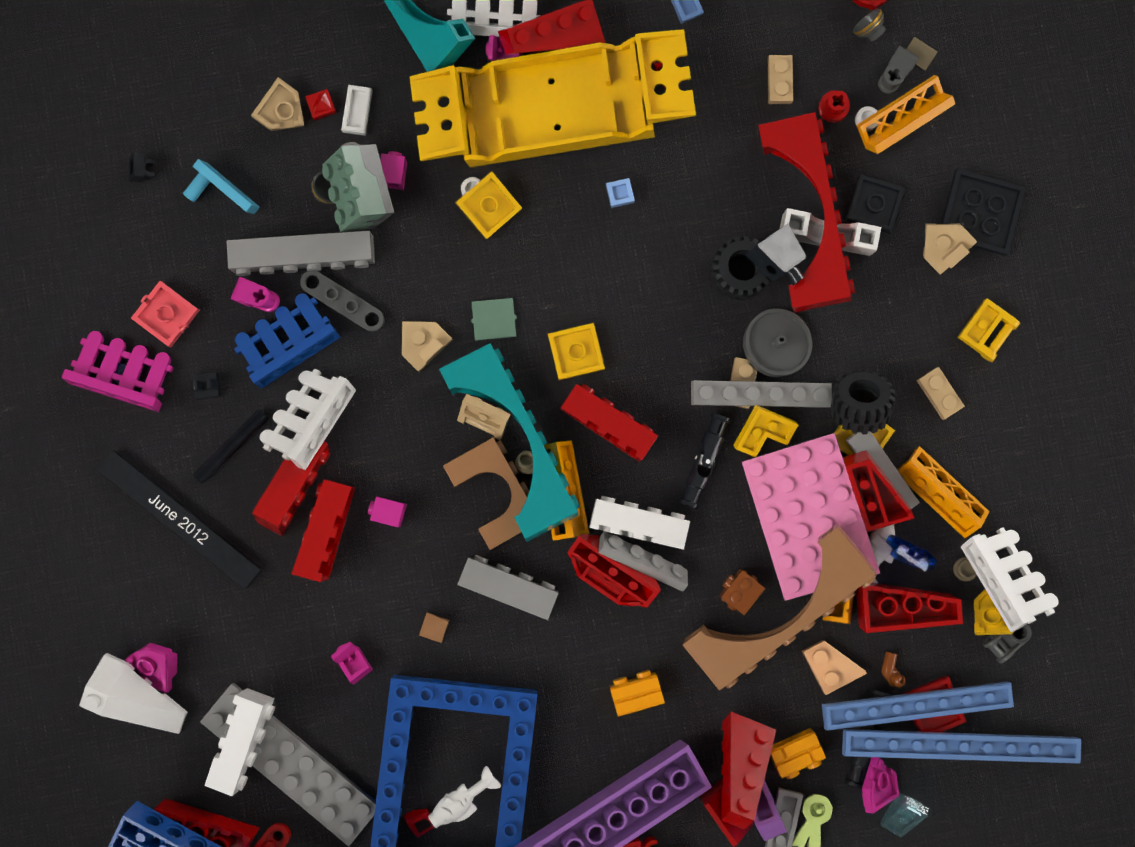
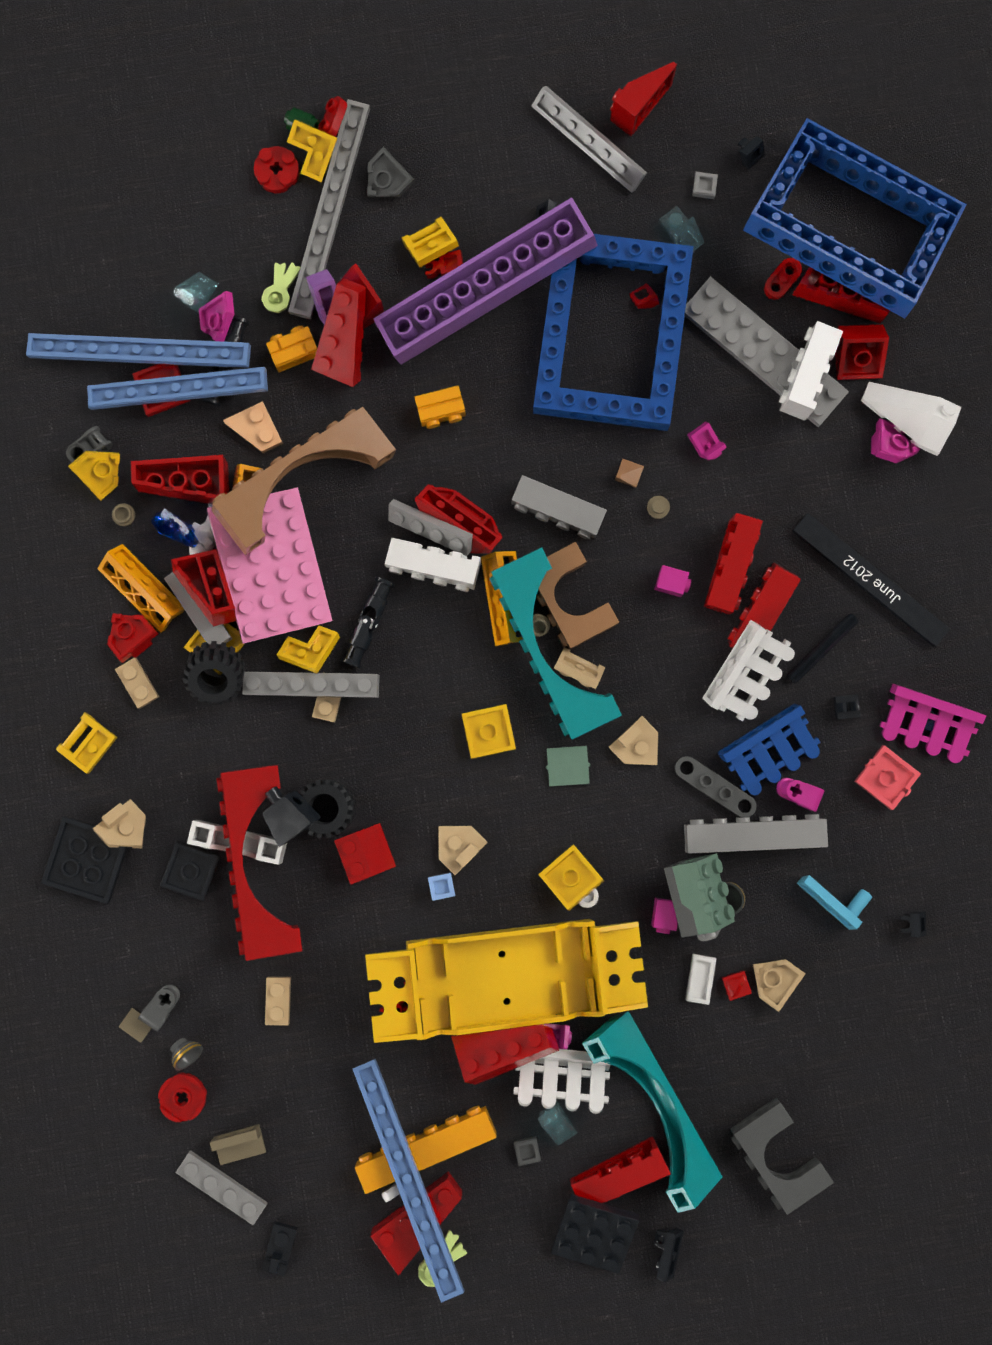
camera: 175 degrees left, 0 degrees up
(185, 765) = (861, 352): none -> red slope
(403, 591) = (658, 507): none -> dark tan plate
(458, 804) = (608, 308): white animal -> none
(603, 235) = (458, 846): none -> tan plate
(608, 422) = (458, 660): red wedge -> none
(699, 224) = (365, 853): none -> red slope
(741, 591) = (338, 498): dark orange head -> none
(777, 343) = (292, 735): dark grey piece -> none
(831, 113) = (233, 973): red piece -> none
(864, 113) = (193, 958): white tile -> none
(890, 672) = (200, 420): dark orange arm -> none
(908, 122) = (155, 954): light orange fence -> none
(951, 441) = (130, 635): none -> red plate
(1001, 588) = (94, 497): white fence -> none

